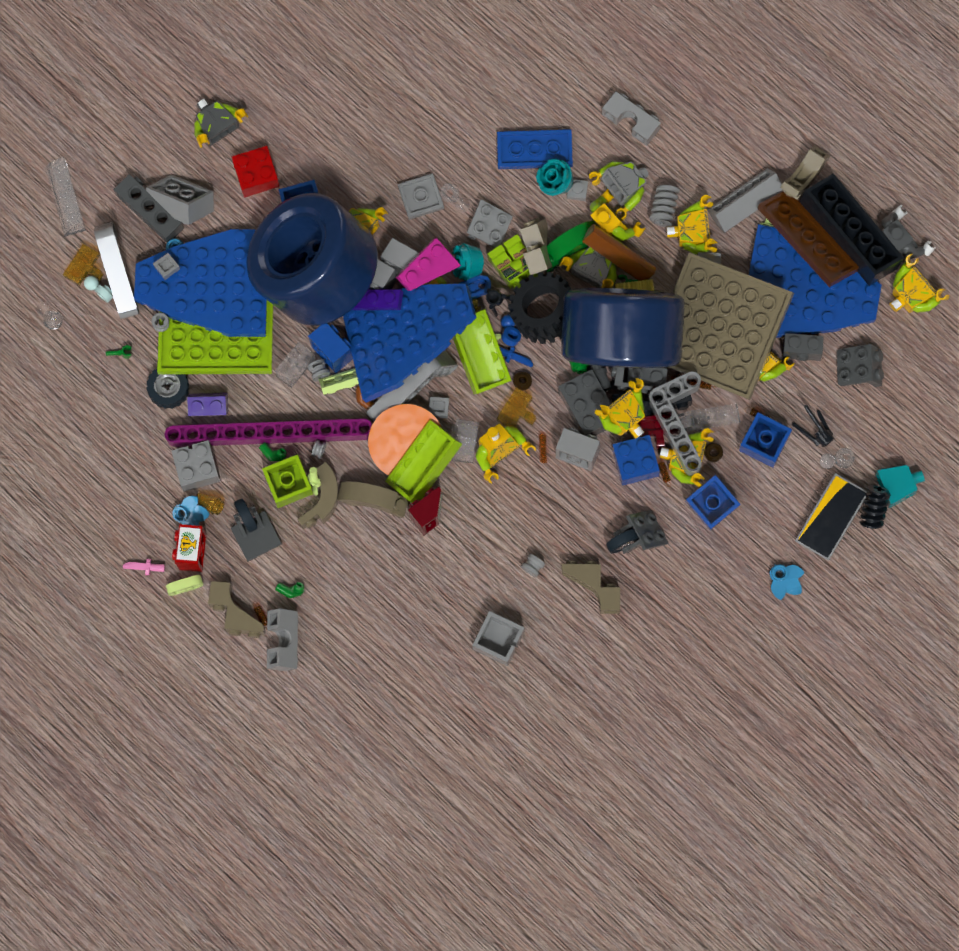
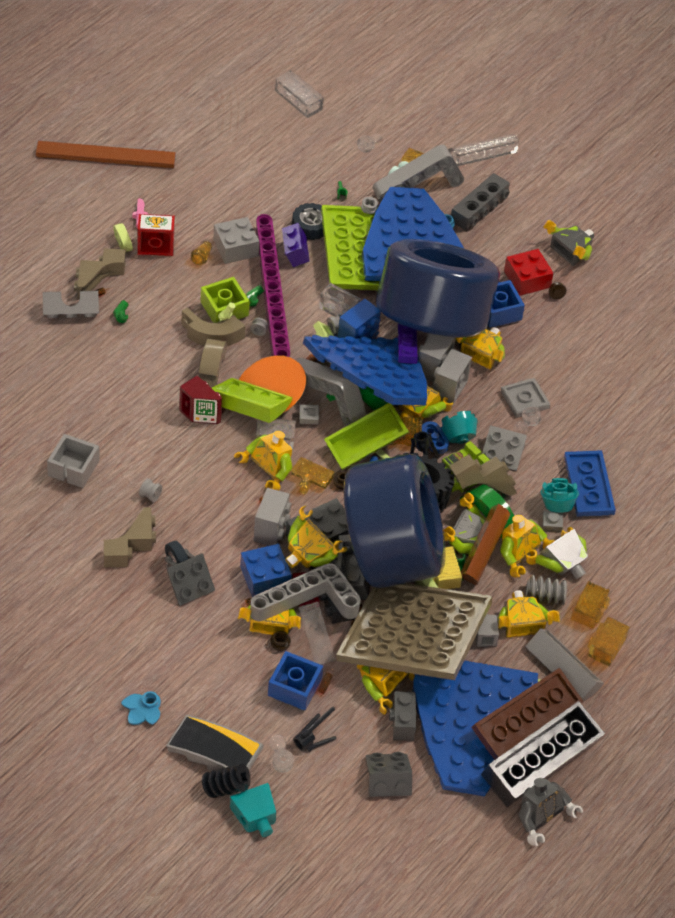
camera: 75 degrees right, 25 degrees down
(50, 602) = (105, 154): none -> dark orange tile
(166, 266) = (421, 202): light grey plate -> none
(182, 199) = (491, 219): light grey slope -> none
(193, 512) = (190, 239): dark azure plate -> none
(253, 531) = (180, 281): dark grey plate -> none
(280, 146) = (557, 290): none -> dark brown plate
(427, 265) = (447, 383): dark pink wing -> none
(620, 107) = (631, 572): light grey arch -> none
(681, 168) = (590, 605): none -> clear yellow brick
(712, 502) = (223, 634): blue brick -> none
(725, 157) = (608, 641): none -> clear yellow brick
(805, 173) = (613, 721): dark tan arch -> none
(913, 290) = (484, 820): torso -> none

